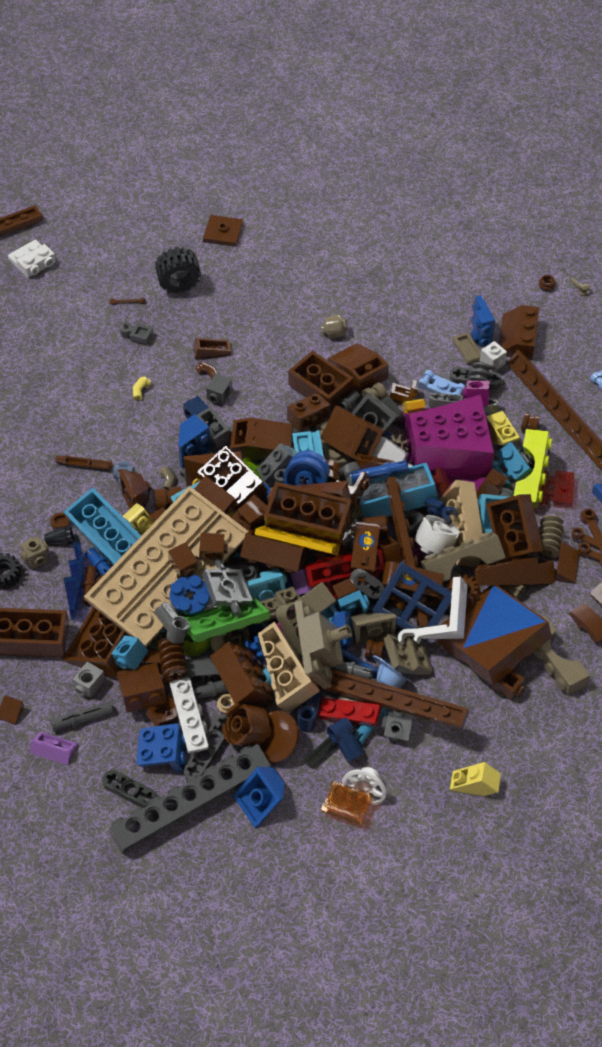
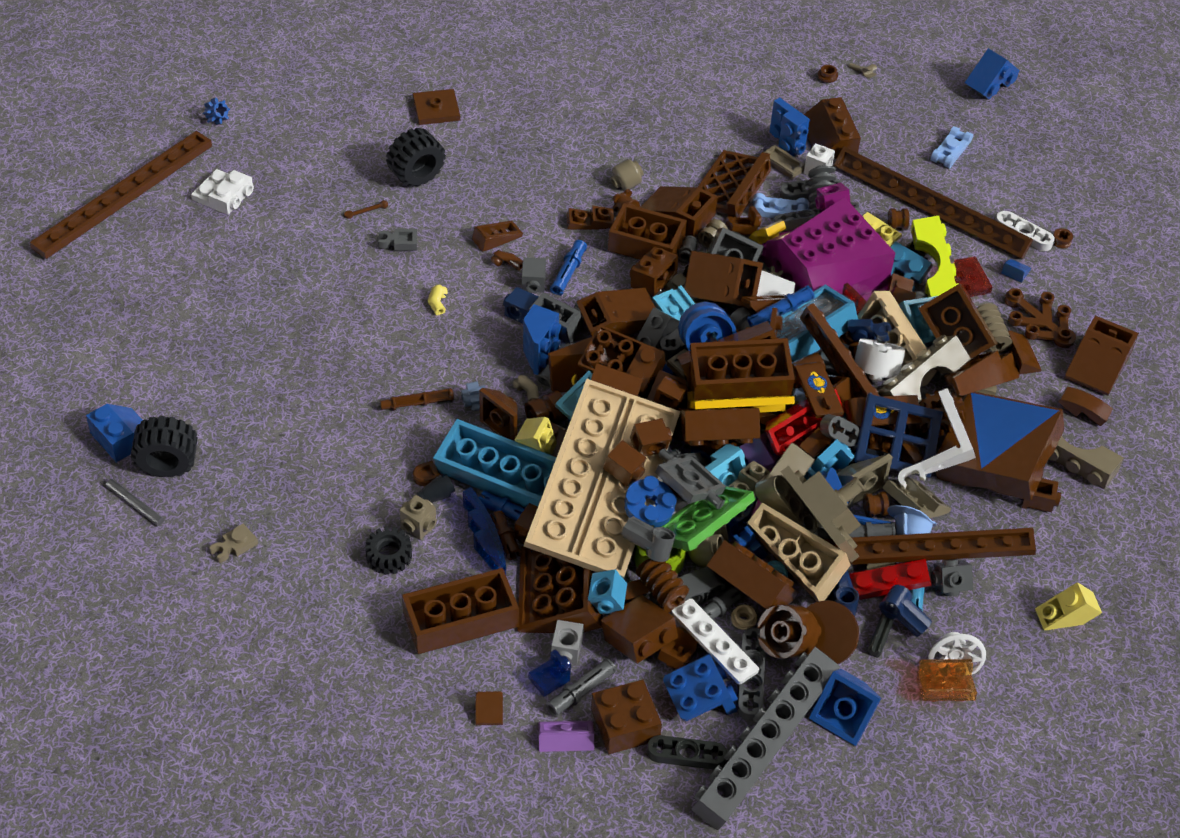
camera: 25 degrees left, 5 degrees down
(57, 197) = (211, 108): none -> blue gear
(64, 700) = (551, 674): none -> clear blue bracket
(98, 748) = (625, 716): none -> reddish brown brick
(255, 385) = (571, 261): none -> blue pin
(287, 355) = (594, 219): none -> reddish brown slope
(321, 348) = (624, 197): none -> reddish brown brick
(422, 362) = (745, 187): none -> reddish brown fence

